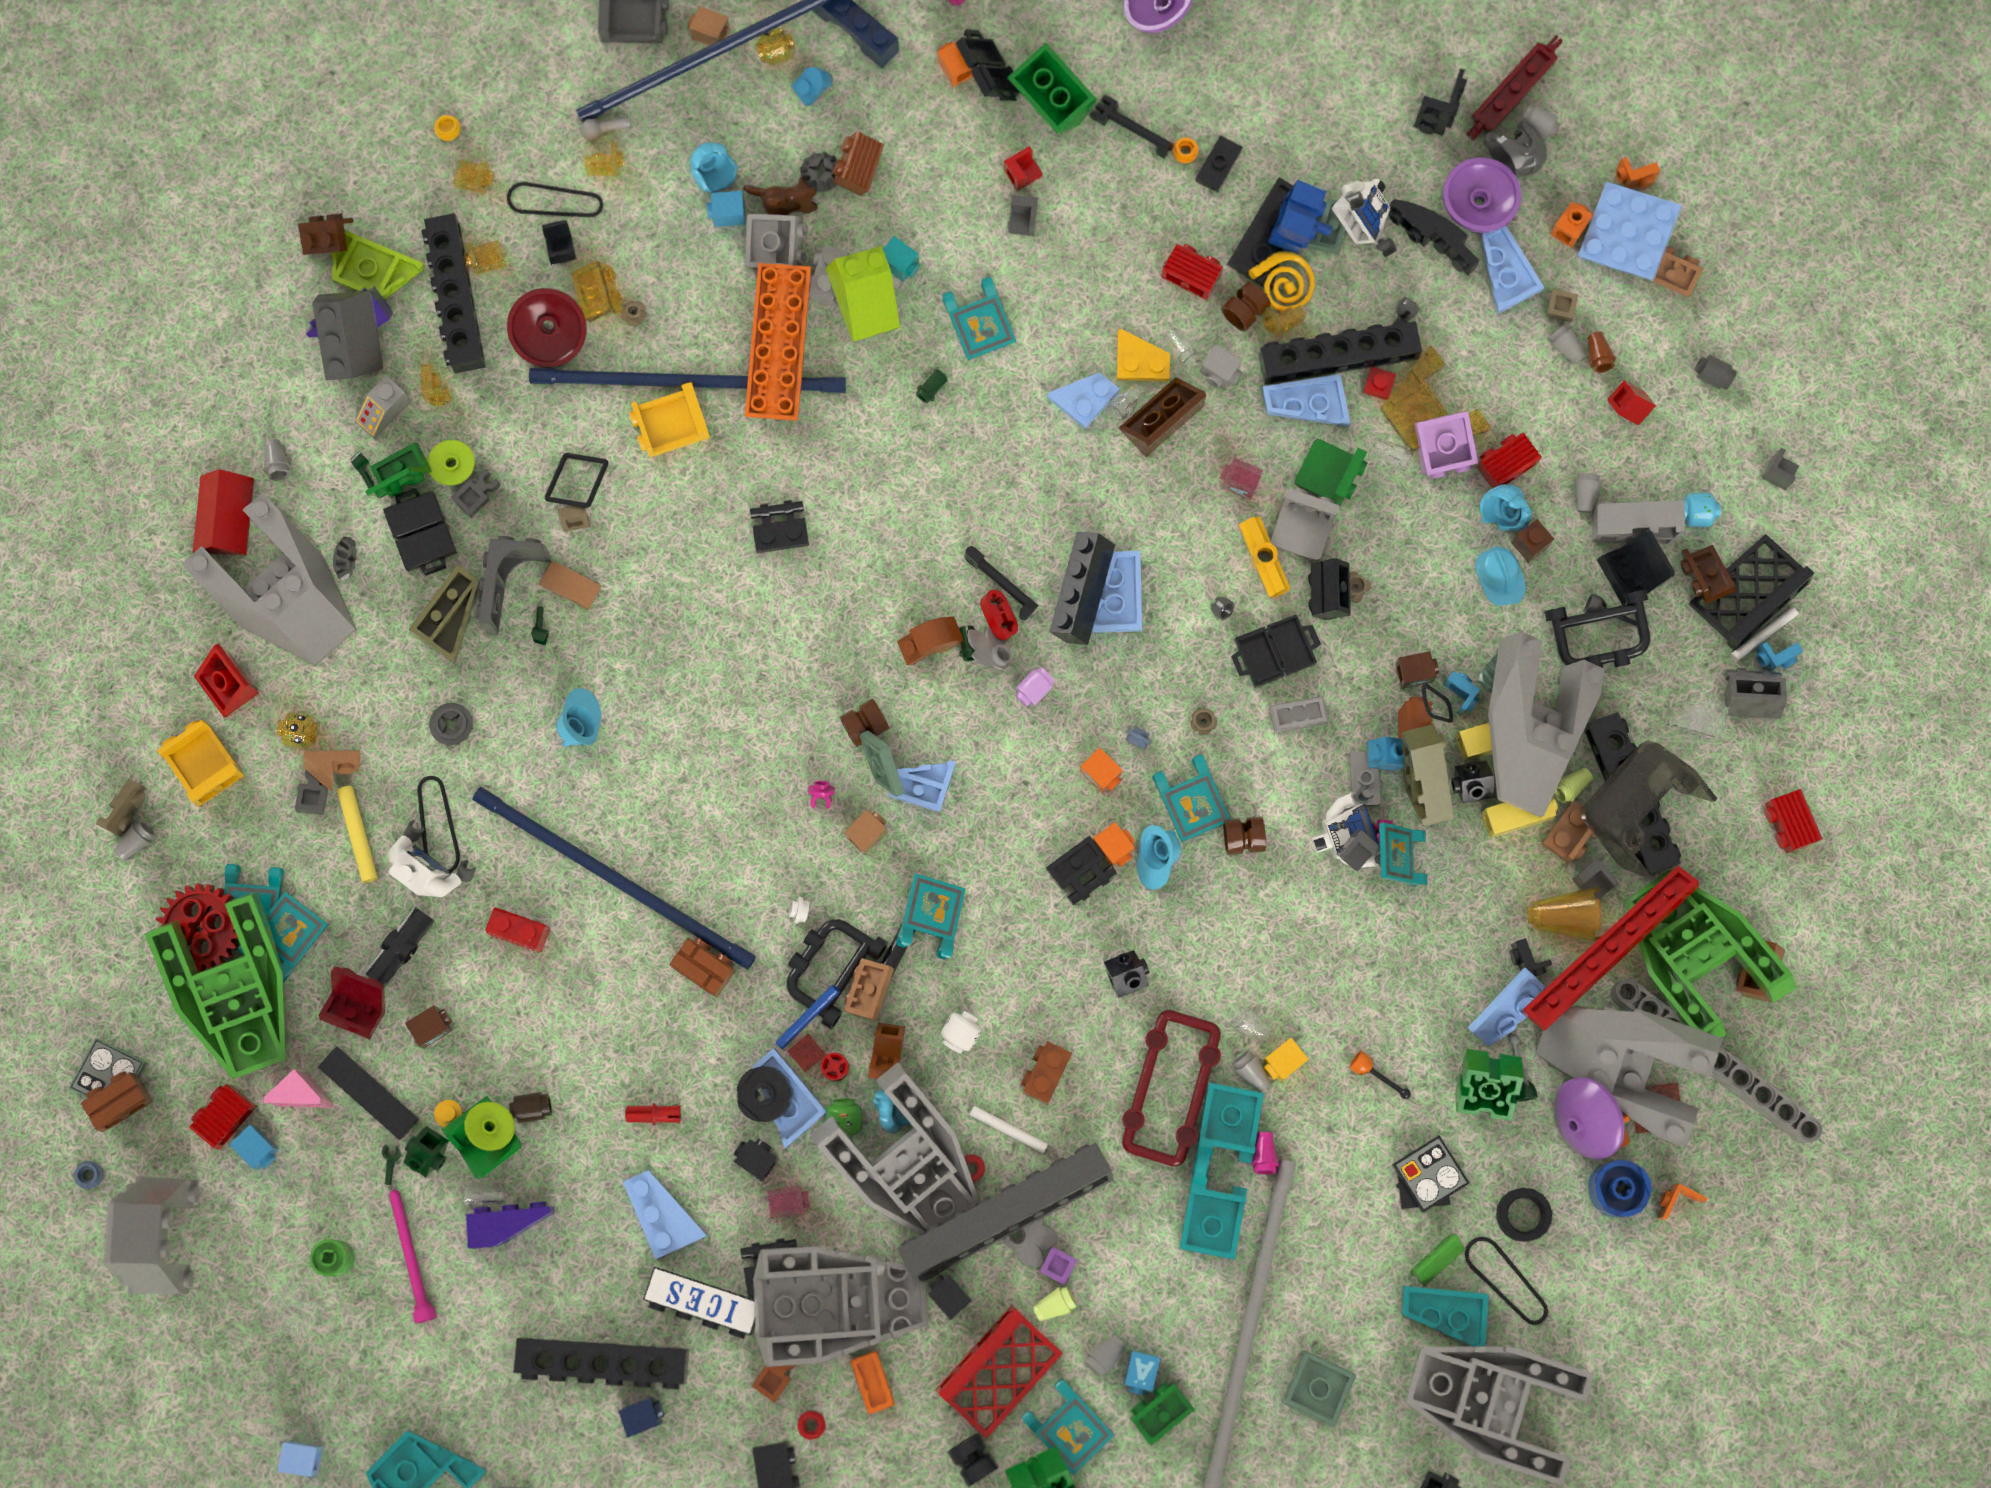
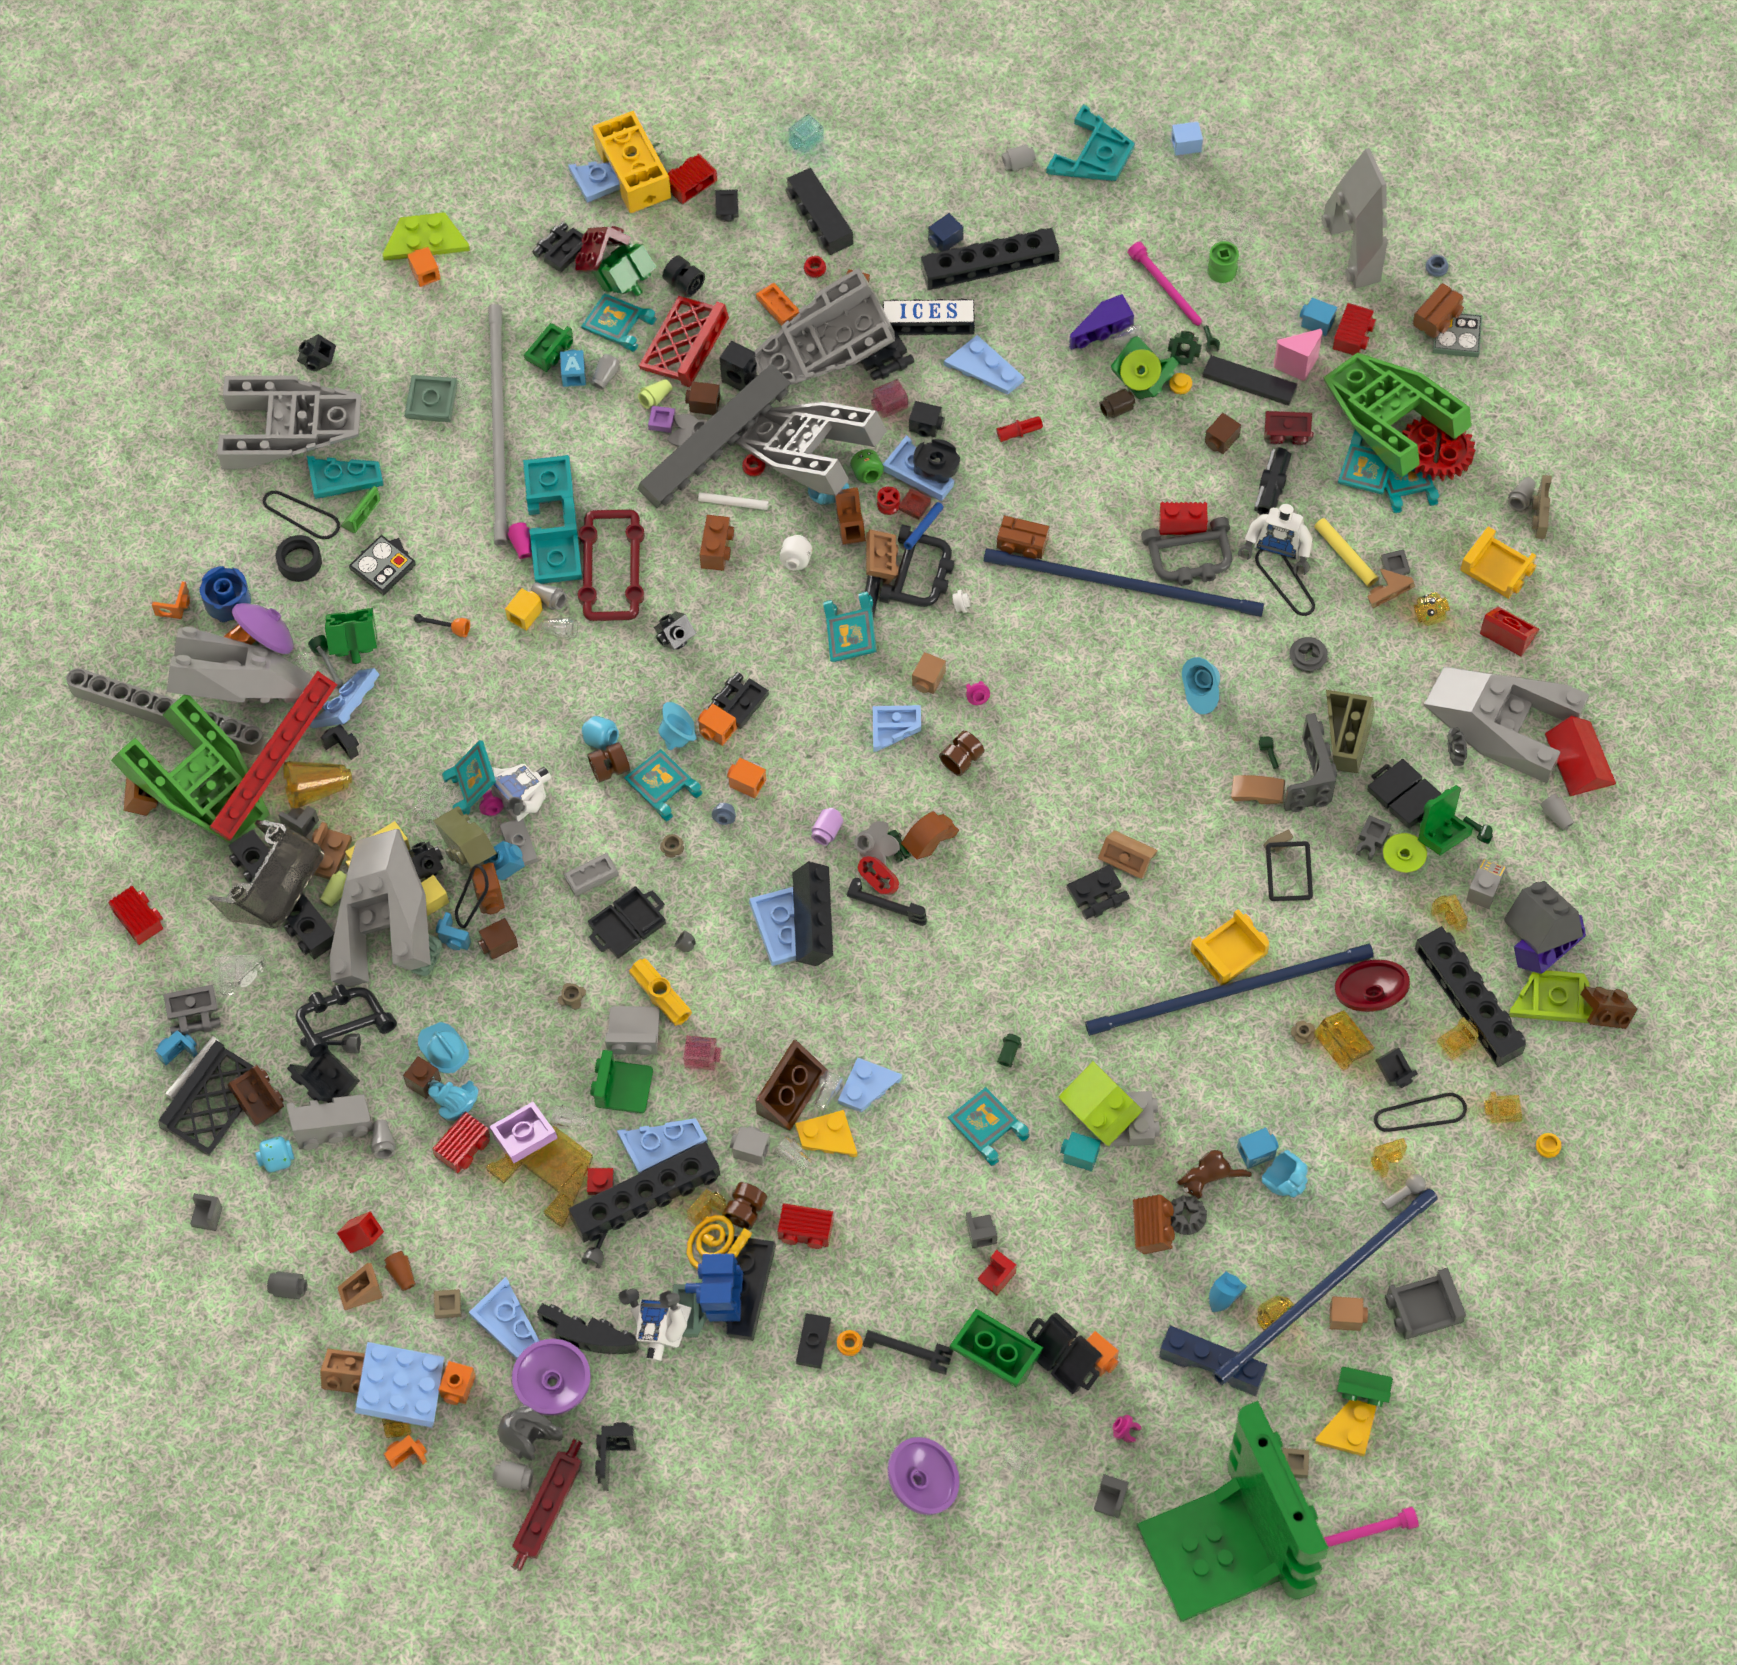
camera: 165 degrees right, 15 degrees down
(518, 860) = (1184, 575): none -> dark grey bar
(731, 558) = (1127, 854): none -> medium nougat panel
(775, 240) = (1199, 1127): light grey plate -> none
(778, 341) = (1160, 1036): orange plate -> none
(881, 763) = (933, 715): sand green tile -> none
(1002, 1276) = (703, 398): none -> reddish brown brick
(1243, 876) = (600, 732): none -> medium azure head
(1330, 589) = (593, 979): black brick -> none
(1358, 849) = (509, 769): dark grey panel -> none
(1567, 344) = (434, 1269): light grey cone -> none
(1642, 345) = (360, 1288): none -> medium nougat slope

